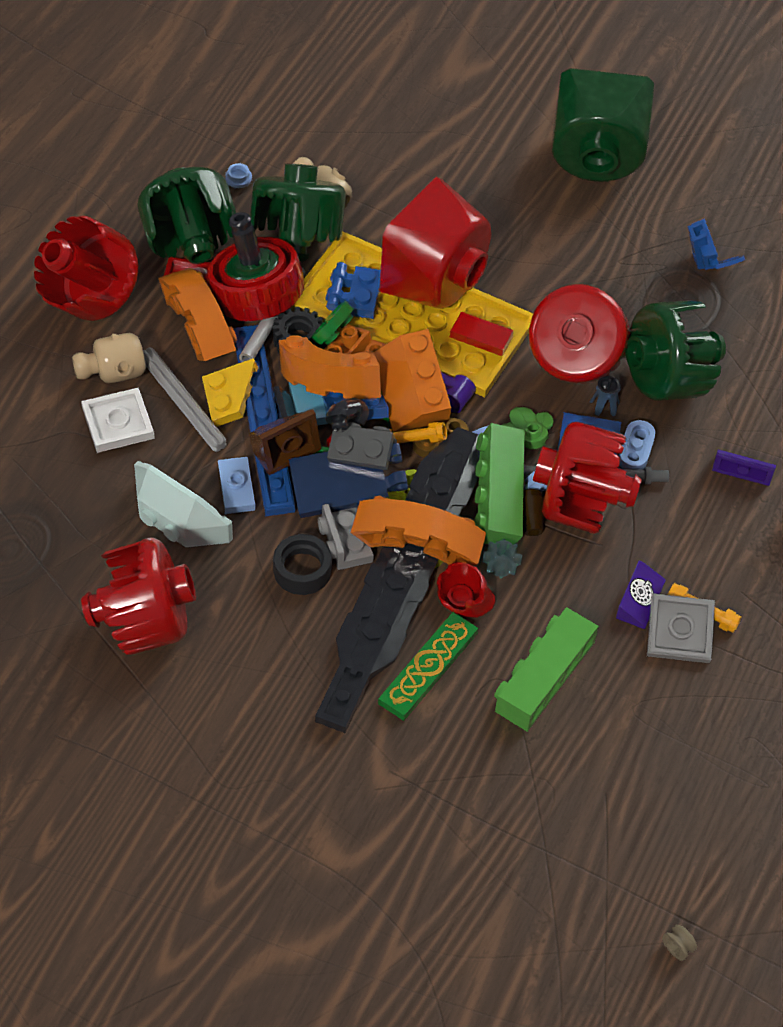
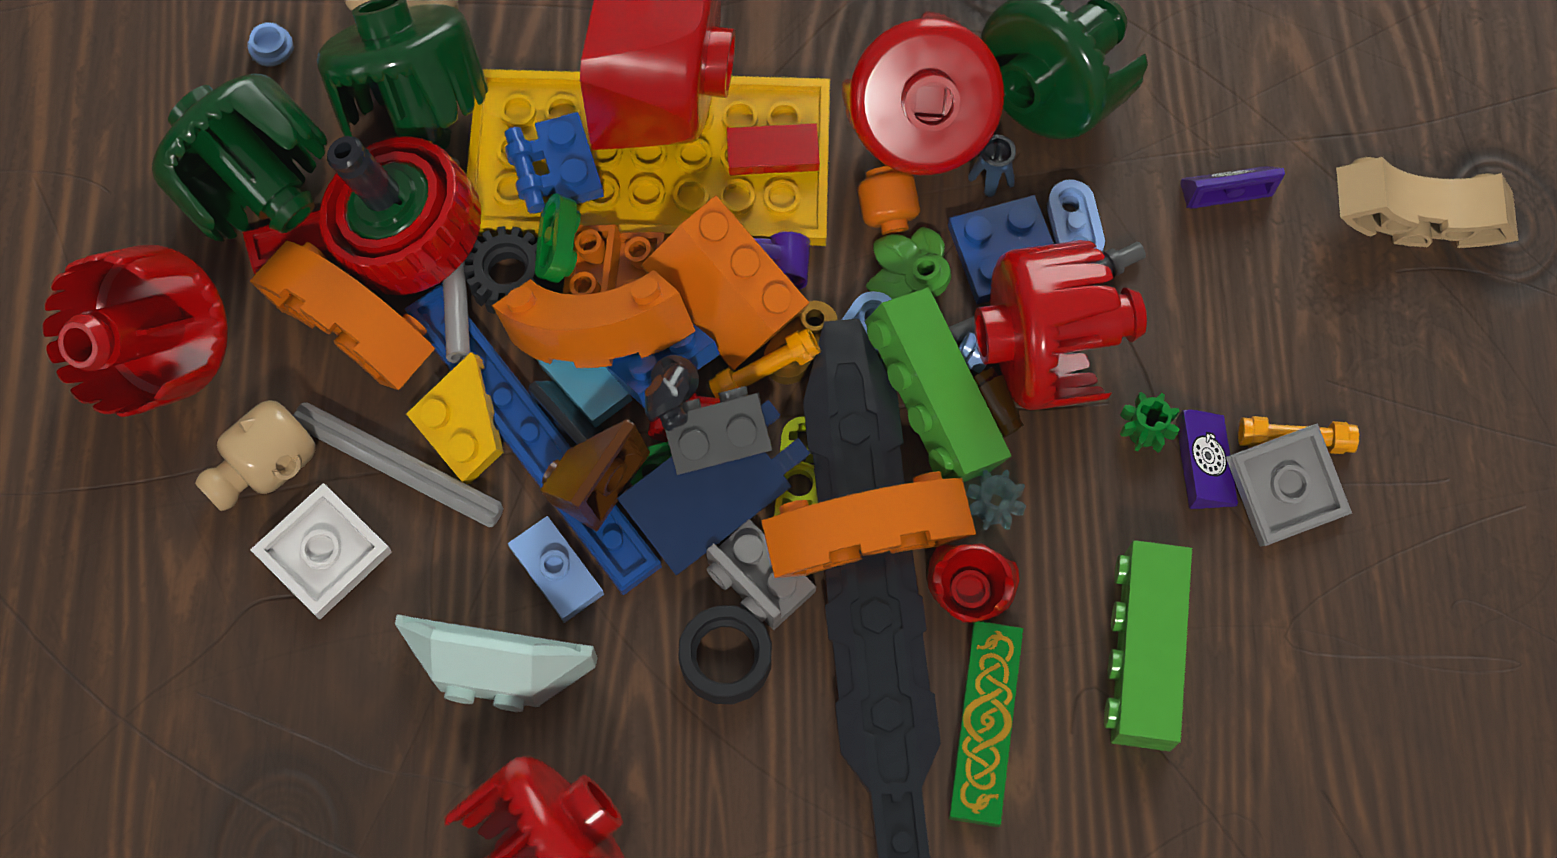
camera: 25 degrees left, 15 degrees up
(533, 387) = (888, 199): none -> orange head
(616, 560) = (1159, 412): none -> green gear

